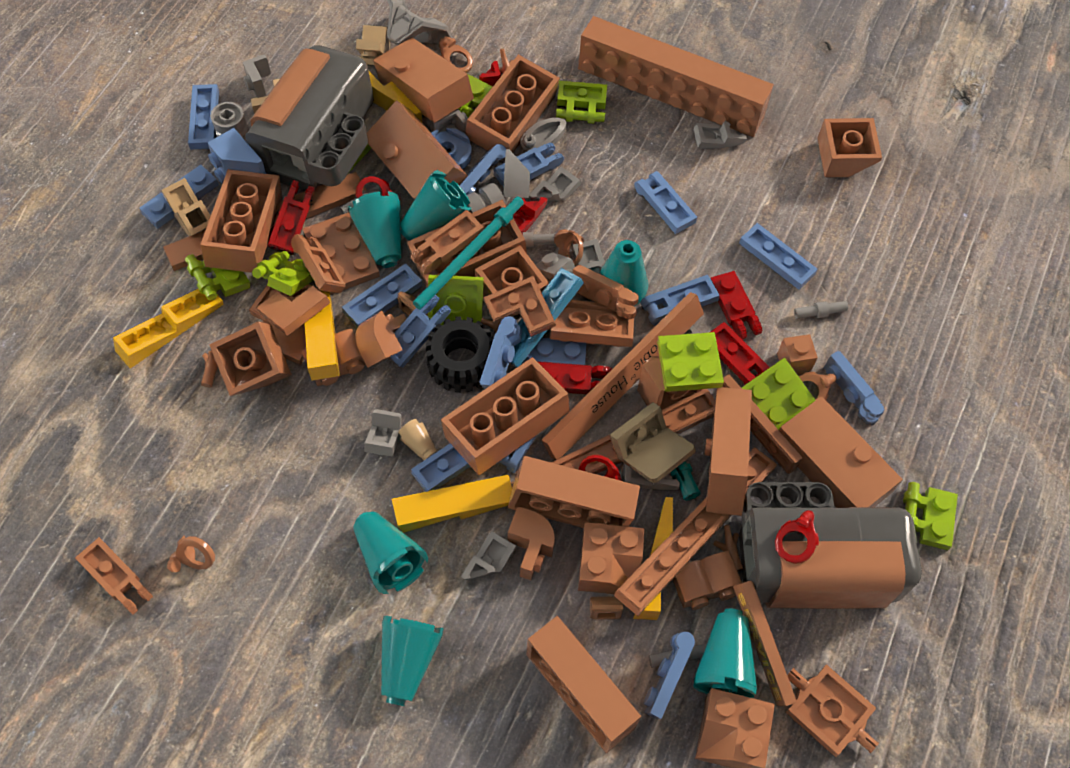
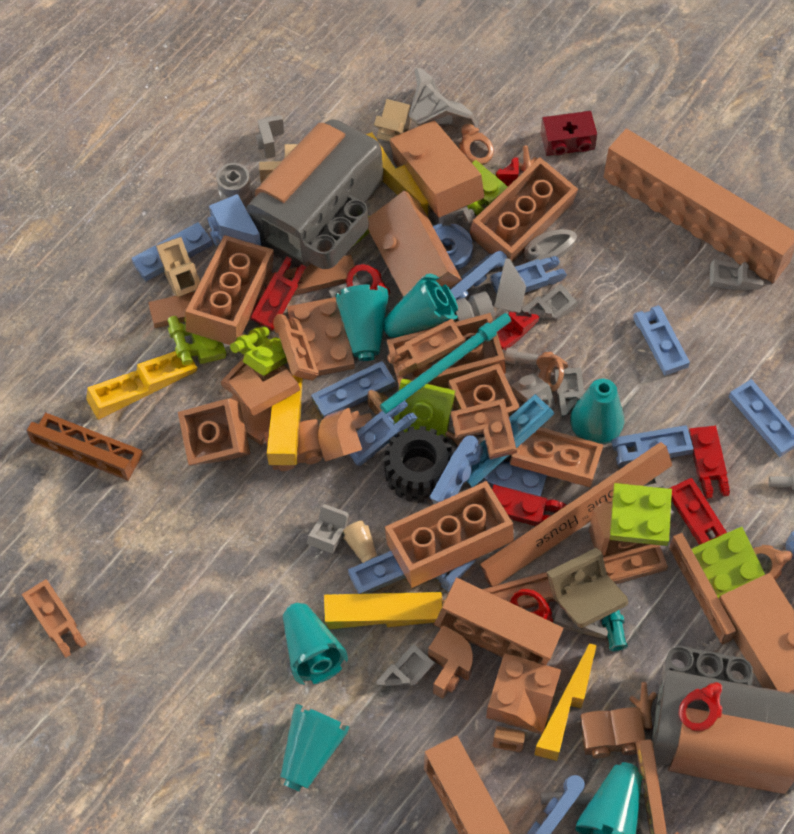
camera: 15 degrees right, 0 degrees up
(119, 402) = (84, 451): none -> dark orange fence
(186, 554) = (122, 611): nougat piece -> none
(201, 127) = (211, 159): medium blue plate -> none
(210, 369) = (174, 434): nougat bar -> none
(539, 33) = (568, 133): none -> dark red brick
(583, 96) = (598, 209): lime plate -> none
(607, 292) = (576, 426): nougat hinge -> none
(682, 545) = (610, 682): nougat tile -> none
(729, 451) = (660, 610): nougat brick -> none
(799, 353) = (759, 524): nougat brick -> none

